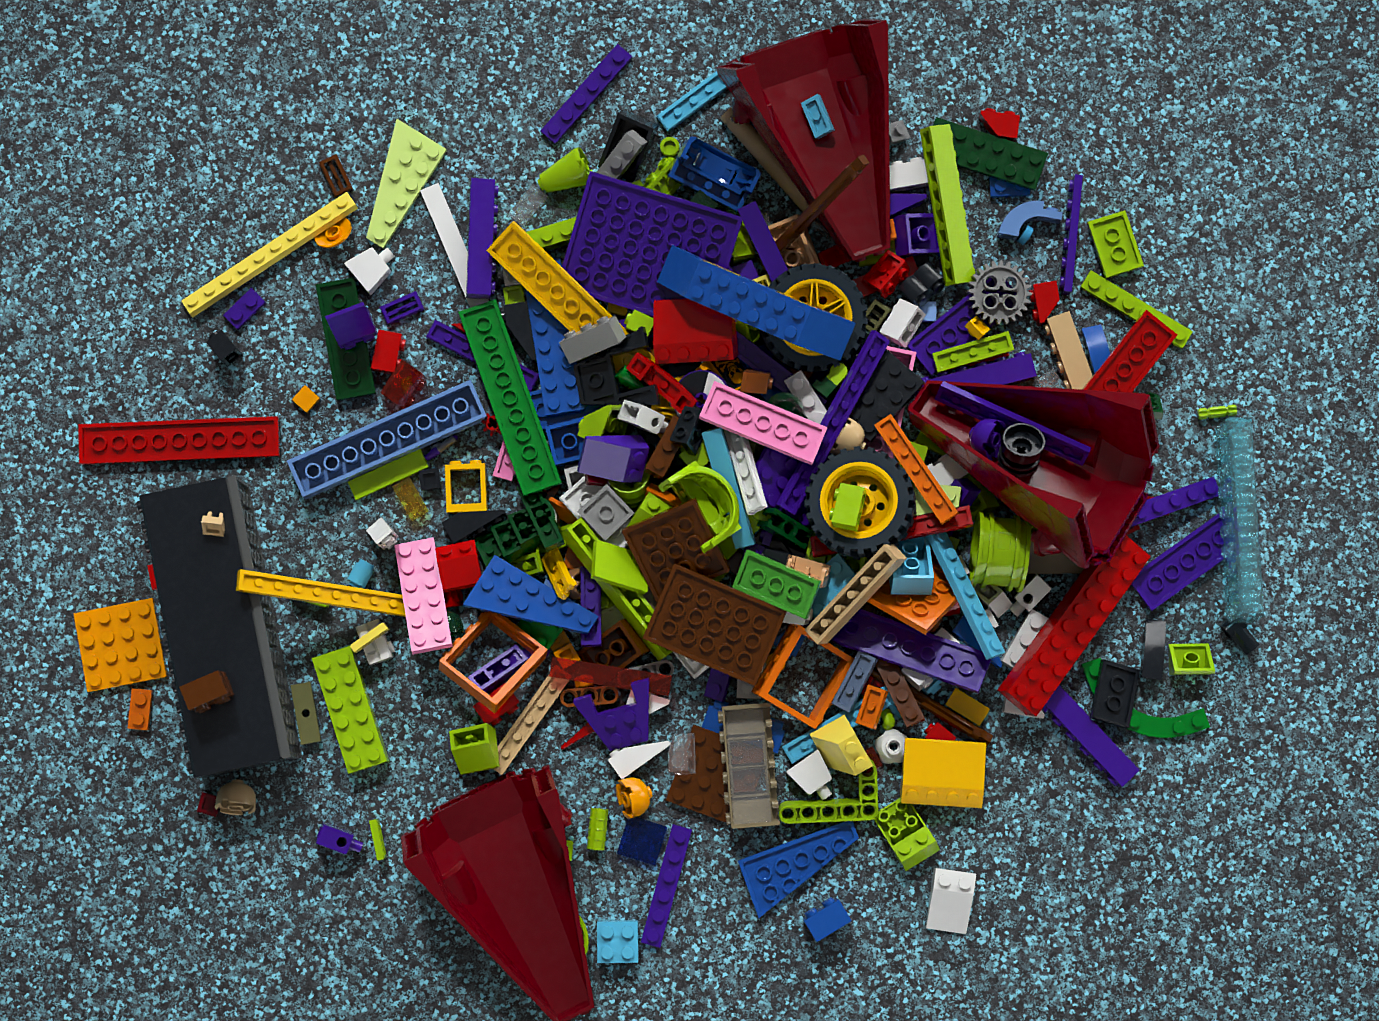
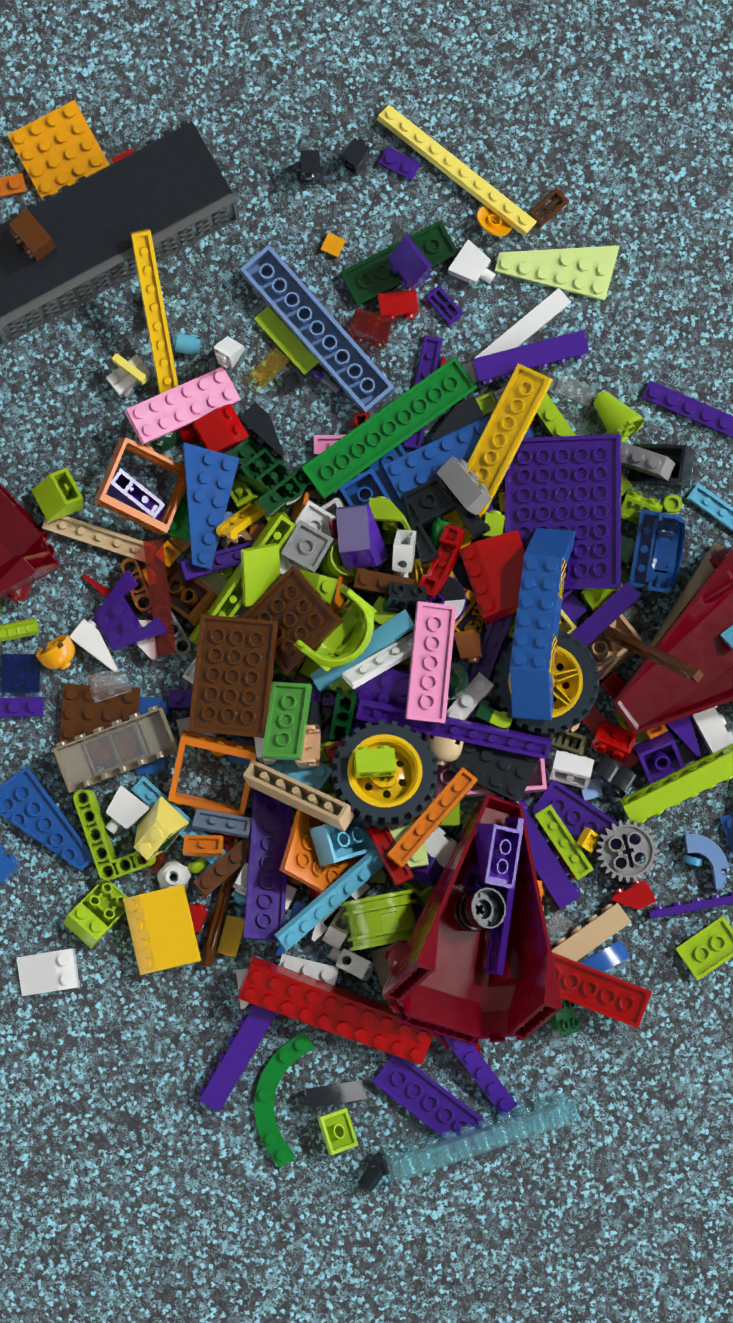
camera: 75 degrees right, 0 degrees up
(179, 440) = (260, 143): red plate -> none
(213, 525) = (183, 194): tan tile -> none
(220, 396) = (310, 166): none -> black brick
(304, 700) = (56, 328): olive tile -> none
(350, 710) = (60, 373): lime brick -> none
(473, 507) = (282, 436): yellow window -> none
(489, 717) = (106, 515): red brick -> none
(972, 414) = (498, 854): none -> dark purple slope
(1114, 694) = (283, 1069): black tile -> none
(1130, 305) = (655, 982): lime plate -> none
(1216, 412) = (580, 1090): lime axle -> none

